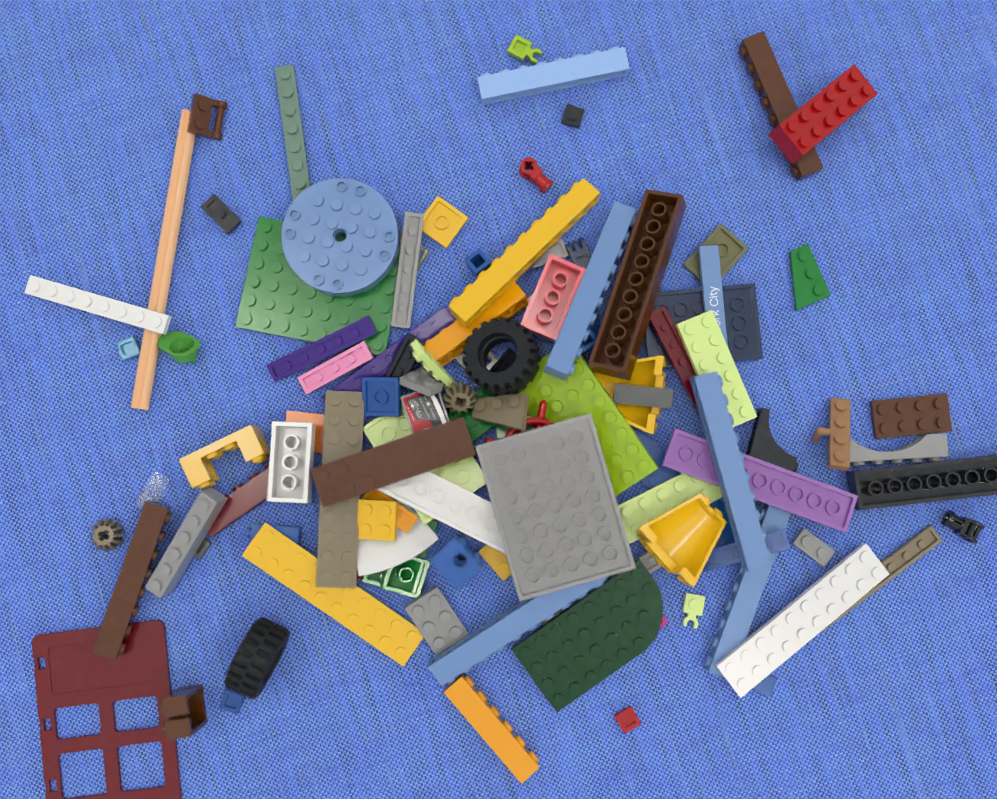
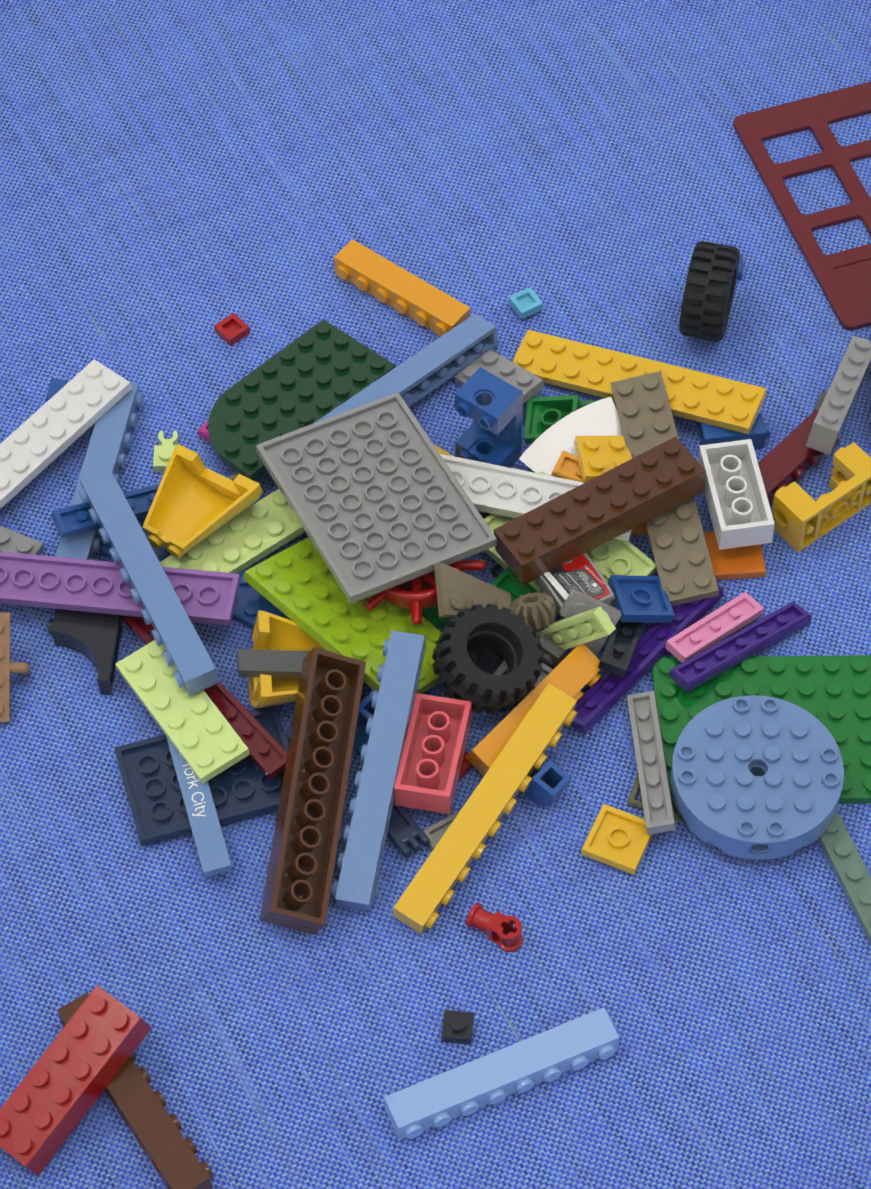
camera: 175 degrees right, 30 degrees down
(183, 712) = (780, 232): reddish brown piece -> none
(398, 695) = (525, 303): none -> medium azure plate
(454, 370) = (552, 653): none -> dark grey plate
(521, 49) = (561, 1107): lime plate -> none
(729, 251) = (190, 890): olive tile -> none
(807, 279) = (61, 869): green wing -> none

